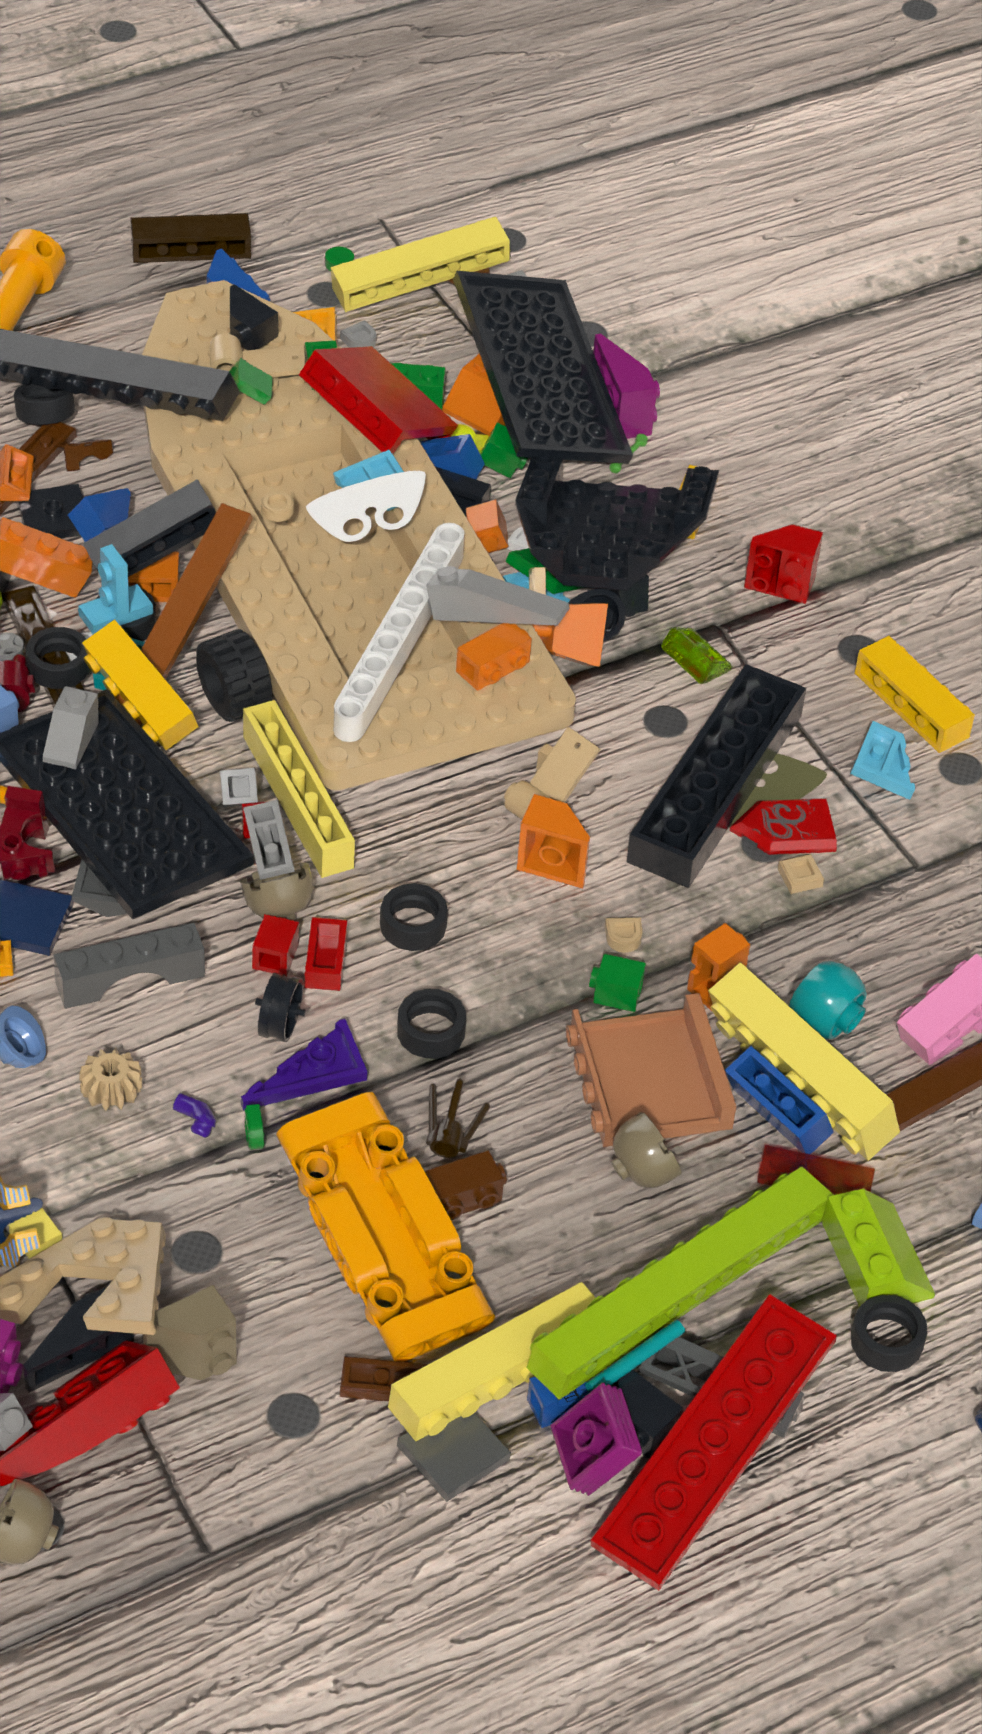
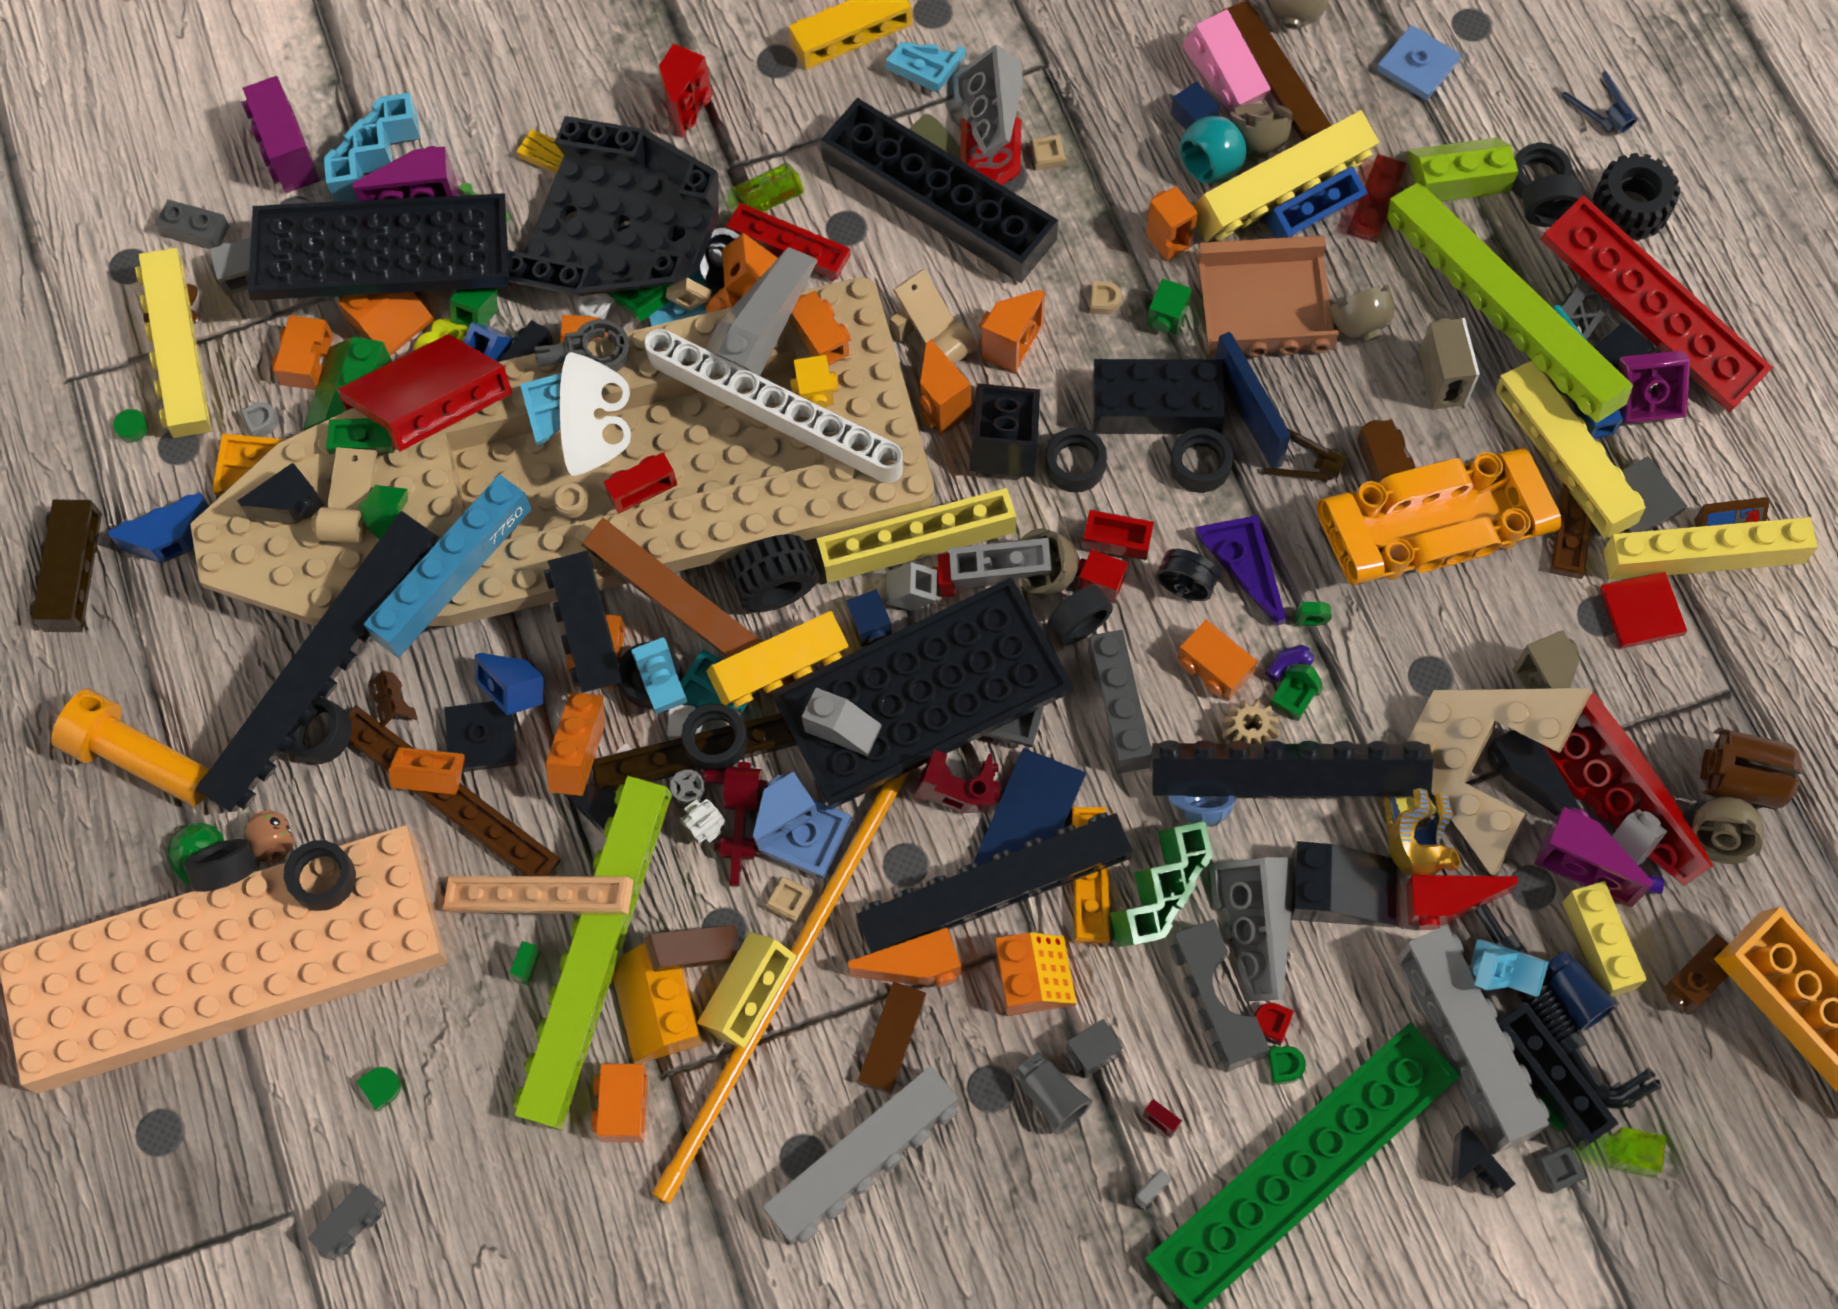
camera: 75 degrees left, 20 degrees up
(57, 1108) = (1291, 769): none -> black brick
(93, 1542) = (1751, 769): none -> reddish brown cylinder
(160, 1124) = (1297, 690): none -> green tile
(187, 1046) = (1216, 660): none -> orange brick
(192, 427) = (448, 566): none -> dark azure brick
(202, 763) = (869, 617): none -> dark blue brick
(221, 919) = (1080, 615): none -> black tyre
(298, 544) = (640, 482): none -> red piece
(302, 1453) = (1643, 610): none -> red tile
(389, 1514) = (1710, 548): none -> light yellow brick
(431, 657) = (814, 380): none -> yellow brick
(432, 347) = (300, 352): none -> orange brick
(437, 1543) = (1733, 512): none -> slope
(438, 852) = (1005, 430): none -> black slope
(441, 490) = (578, 342): none -> dark grey pin
(469, 788) = (944, 391): none -> orange slope
(500, 977) = (1157, 395): none -> black brick
(504, 1047) = (1252, 401): none -> dark blue tile
(555, 260) = (192, 224): none -> dark grey piece
(587, 1229) = (1448, 363): none -> dark tan piece
(631, 670) = (778, 235): none -> red gear
(659, 296) = (279, 135): none -> magenta piece
(670, 360) = (369, 143): none -> medium azure brick
(845, 1319) = (1546, 189): none -> black tyre
(861, 809) = (990, 97): none -> light grey wedge
(869, 1453) = (1643, 177): none -> black tyre
(871, 1043) = (1262, 128): none -> dark tan cylinder
(888, 991) = (1192, 105): none -> dark blue brick

